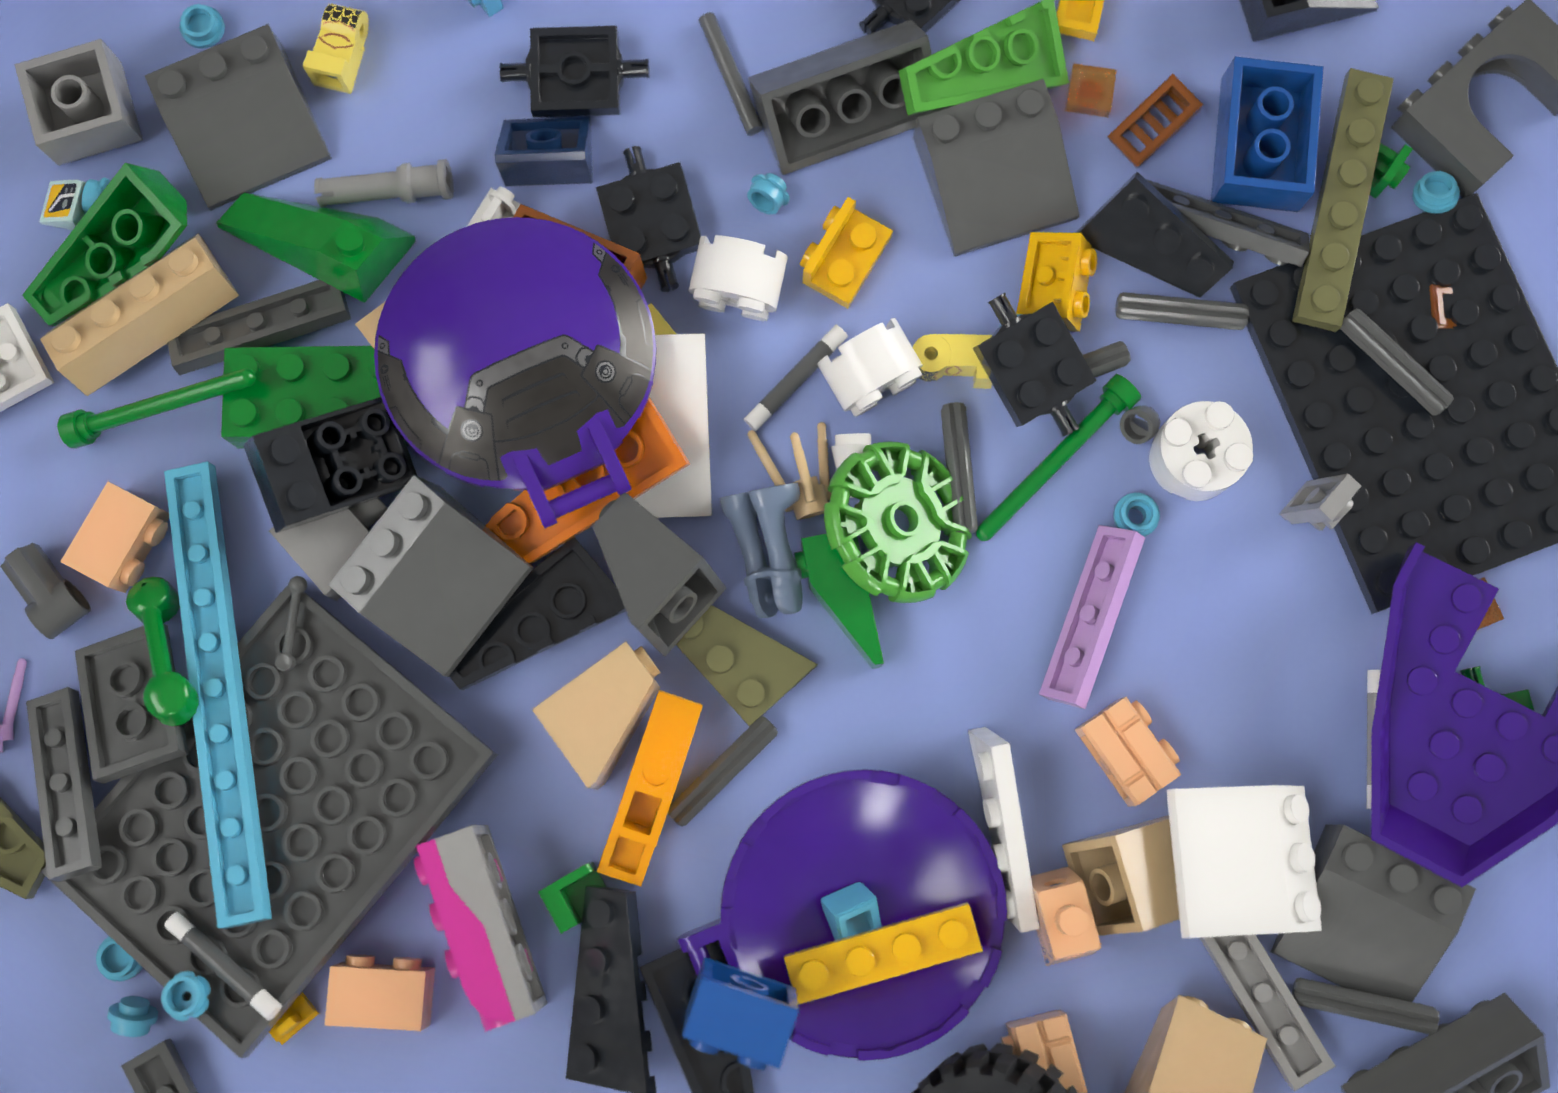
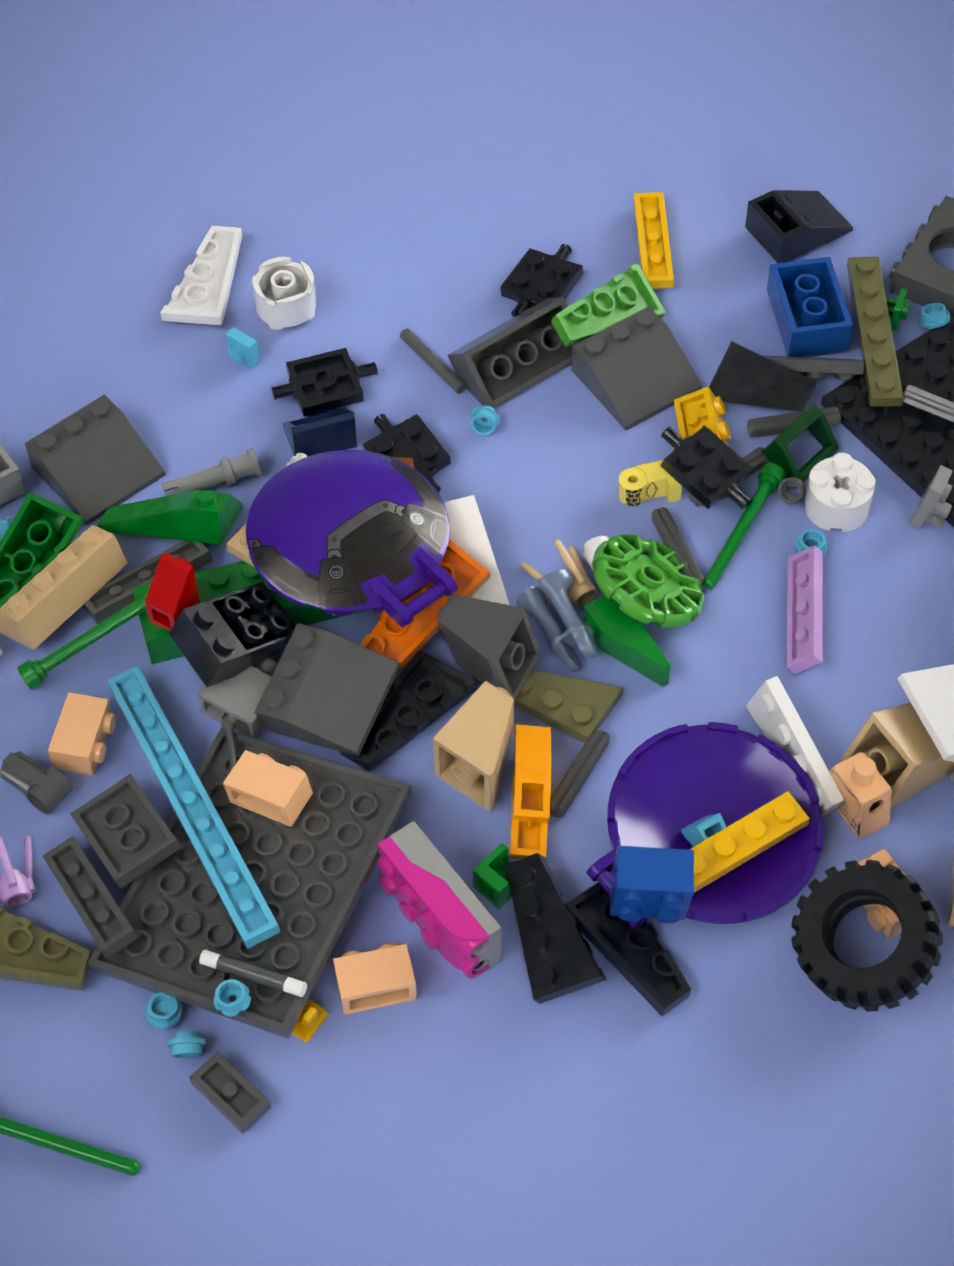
camera: 15 degrees left, 25 degrees down
(167, 693) = (158, 803): green piece -> none
(201, 26) = (48, 414): medium azure plate -> none
(256, 394) = (171, 591): none -> red slope
(313, 705) = (268, 787): none -> light nougat brick
(338, 48) = (152, 404): light yellow leg -> none
(738, 276) = (482, 465): white brick -> none
(795, 378) = (542, 523): dark grey bar -> none
(845, 253) = (550, 443): yellow bracket -> none
(870, 365) = (594, 495): white brick -> none
(1090, 90) = (682, 313): clear orange plate -> none
(1129, 751) = (861, 681): light nougat brick -> none
(1168, 342) = (817, 424): none -> dark green tile
(1184, 100) = (735, 300): dark orange slope -> none

